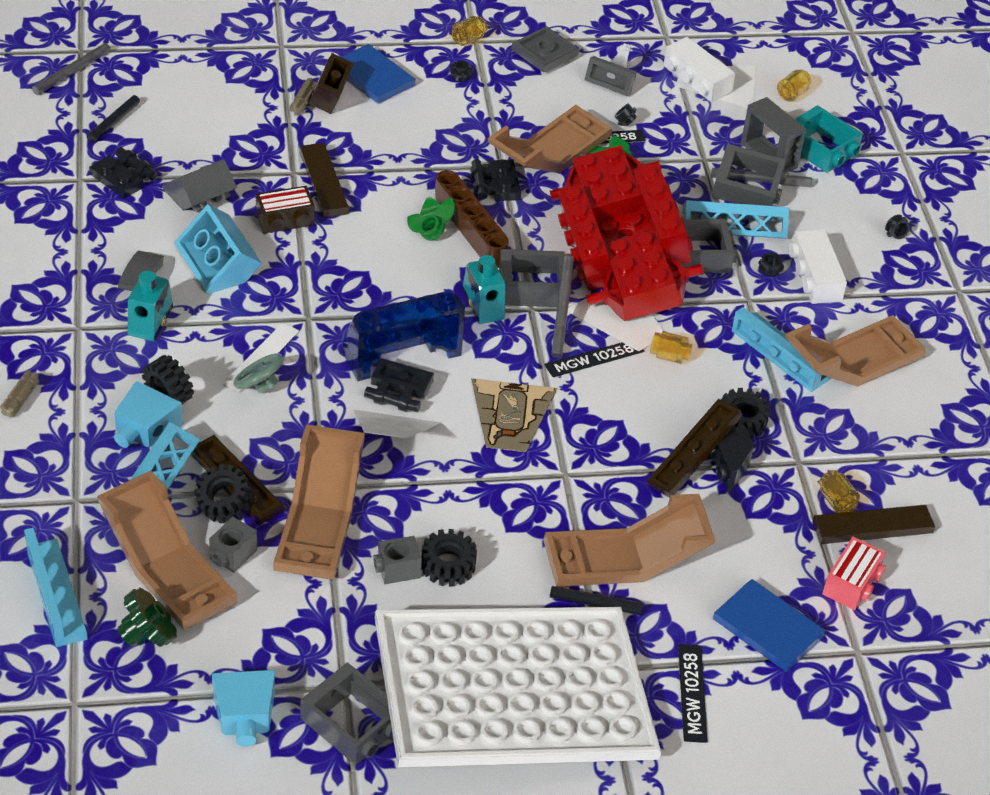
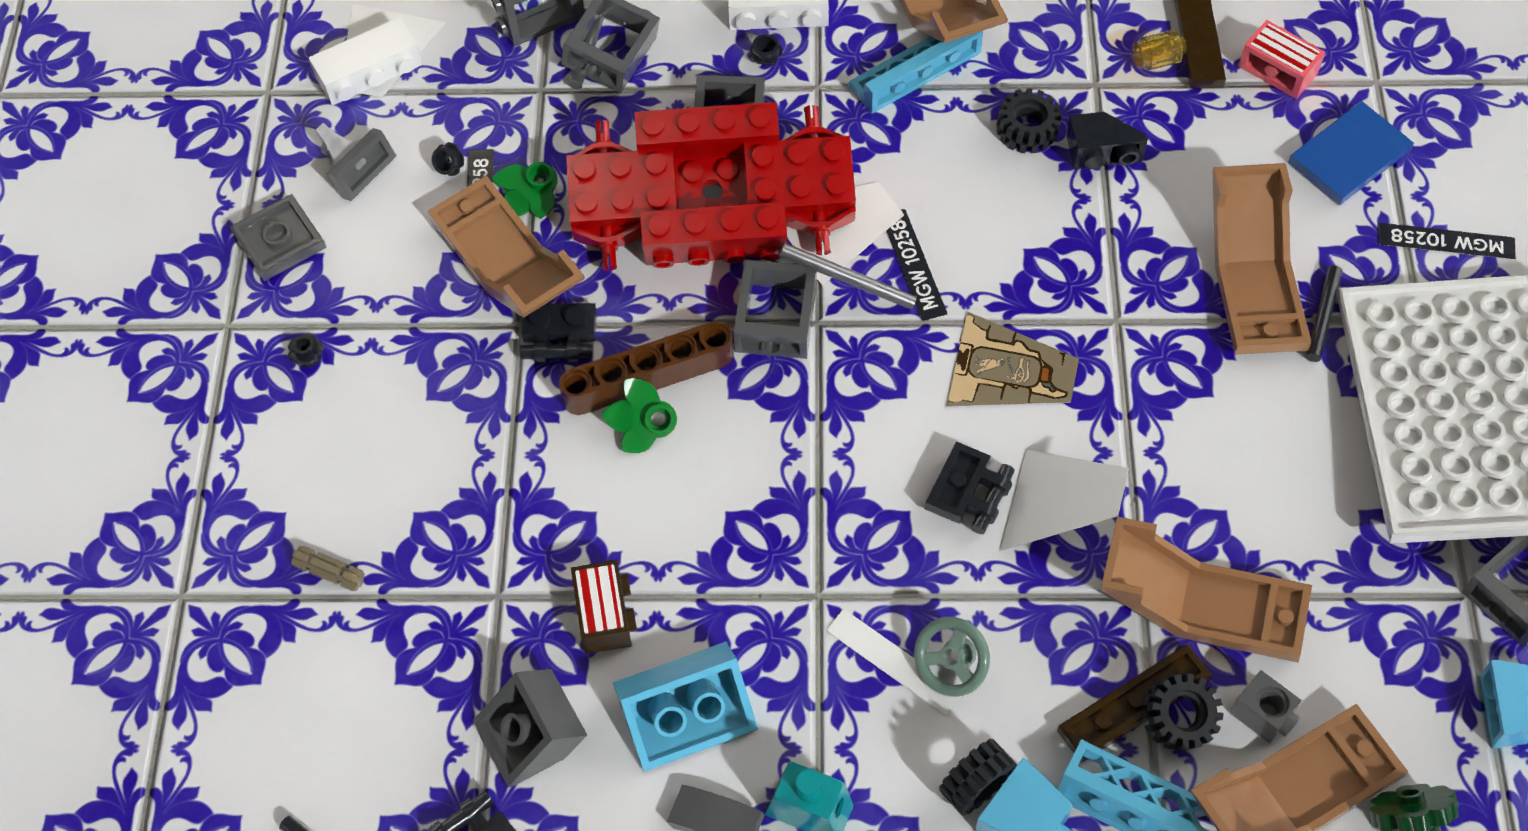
camera: 75 degrees left, 15 degrees up
(324, 180) = (527, 553): dark brown tile -> none
(331, 83) = (323, 520): dark brown brick -> none
(377, 74) = (285, 468): blue tile -> none
(385, 329) = (893, 508): clear blue windscreen -> none
(398, 560) = (1285, 498): dark grey brick -> none
(448, 544) = (1277, 439): black tyre -> none
(469, 30) = (215, 327): clear yellow brick -> none
(485, 290) = (803, 363): teal torso -> none
(671, 347) = (914, 174): clear yellow brick -> none
(694, 448) = (1104, 171): dark brown tile -> none
(741, 211) = (670, 63): medium azure fence -> none

